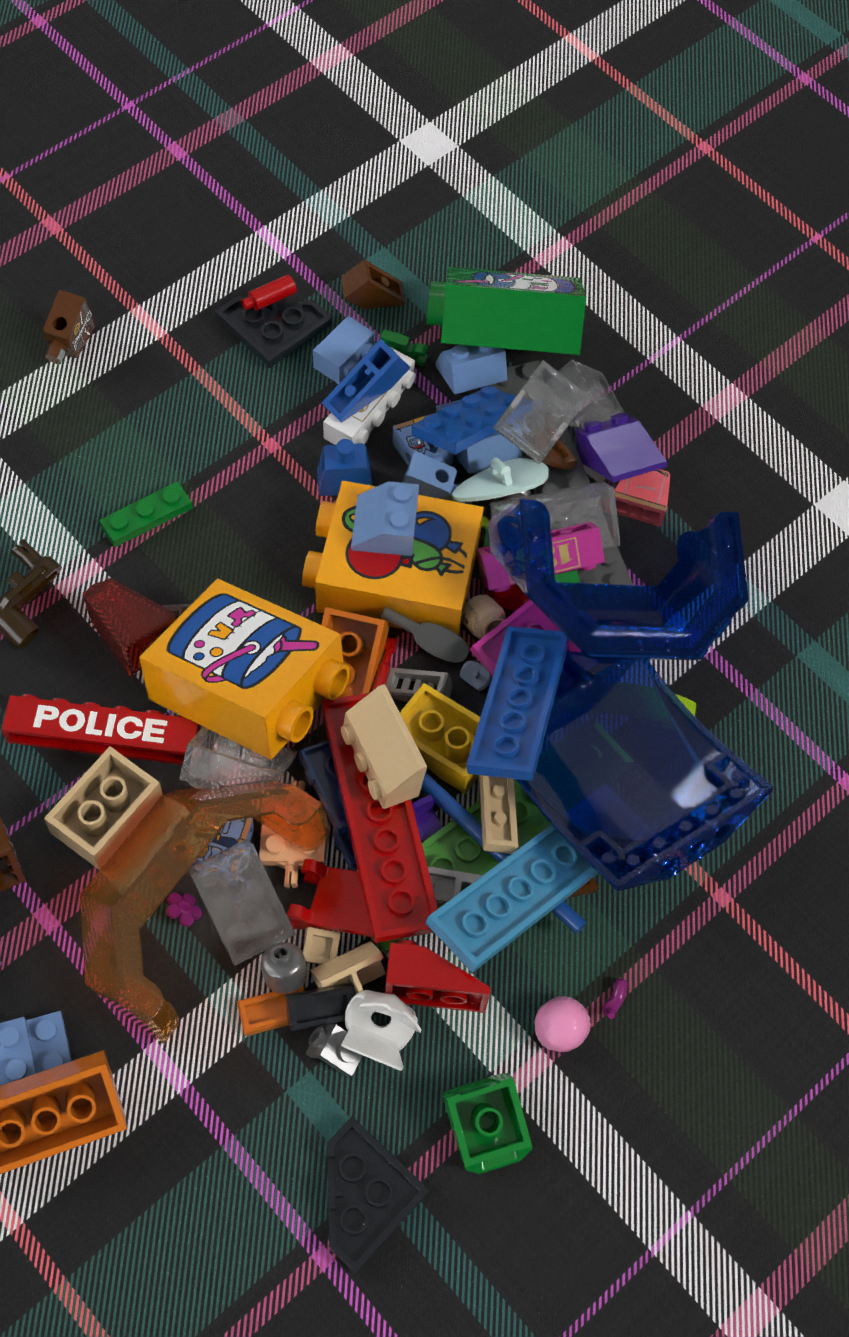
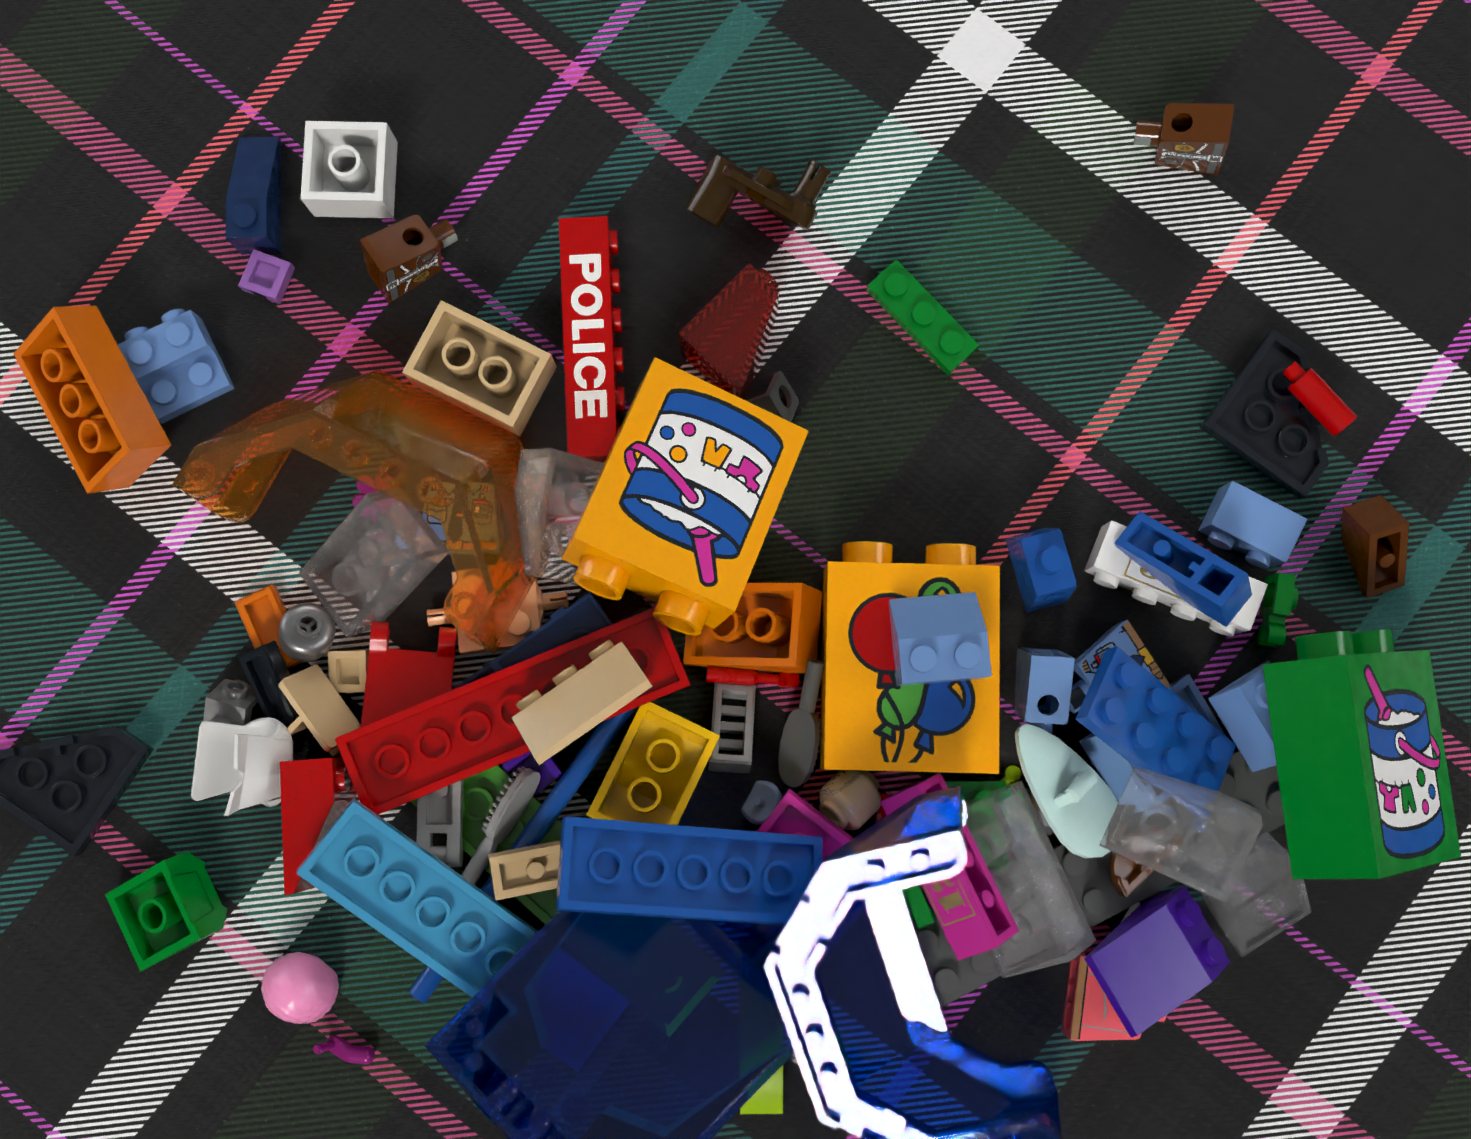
camera: 85 degrees right, 20 degrees up
(455, 843) = (503, 819): none -> light grey piece

